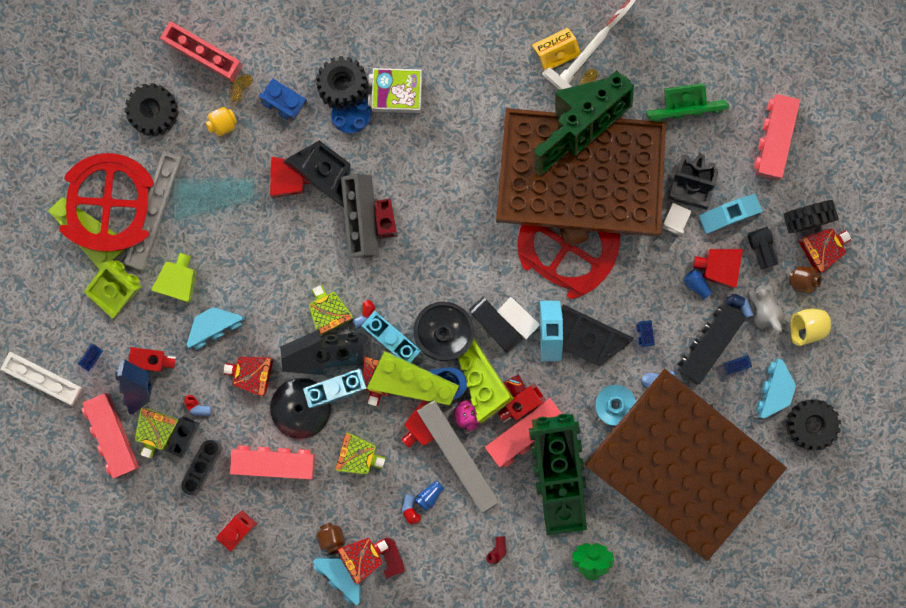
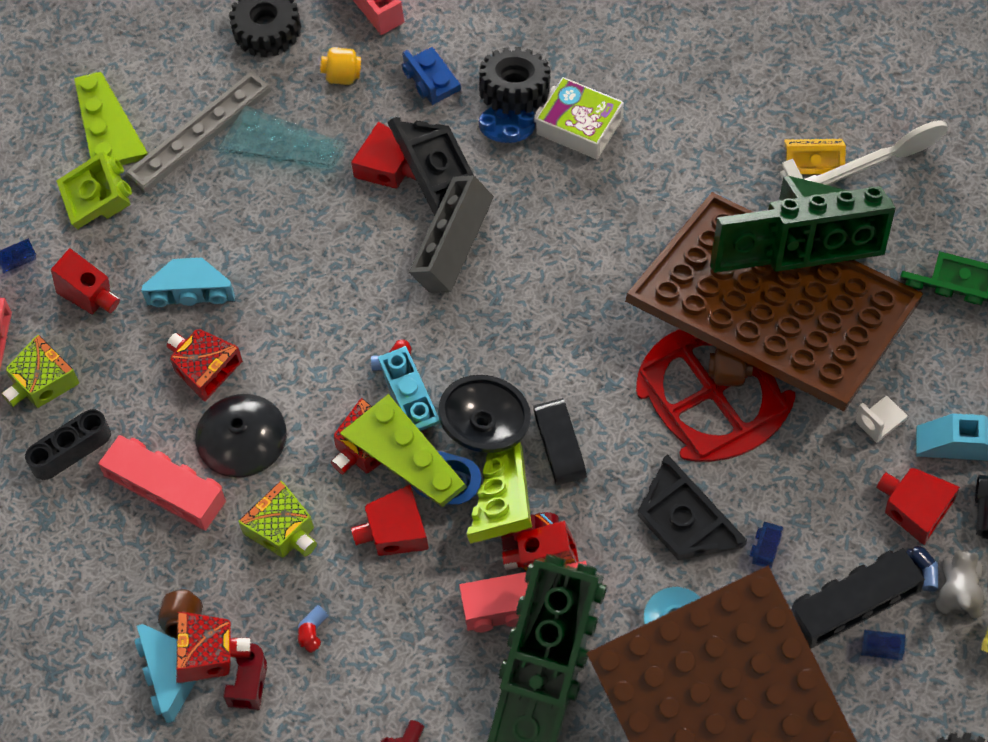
camera: 25 degrees right, 25 degrees down
(103, 240) = (157, 139): red window -> none
(134, 384) = (46, 296): dark blue slope -> none
(176, 279) = (177, 214): lime torso -> none
(182, 436) = (67, 397): black leg -> none
(195, 408) = (106, 372): arm -> none
(236, 531) = (59, 542): red torso -> none
(239, 85) = (386, 40): clear yellow arm -> none
(305, 355) = (281, 365): black brick -> none
(328, 311) = (345, 331): torso -> none
(335, 389) = (298, 422): medium azure slope -> none
(385, 219) = (482, 256): dark red leg -> none
(429, 496) = (347, 621): blue cone -> none
(457, 456) = (415, 581): light grey tile -> none
(466, 415) = (454, 541): dark pink head -> none
(518, 318) = (597, 450): white tile -> none
(551, 331) = (631, 483): medium azure slope -> none
(694, 182) = (928, 381): black plate -> none
(697, 283) = (873, 511): blue cone -> none
(777, 390) = (926, 706): medium azure slope -> none

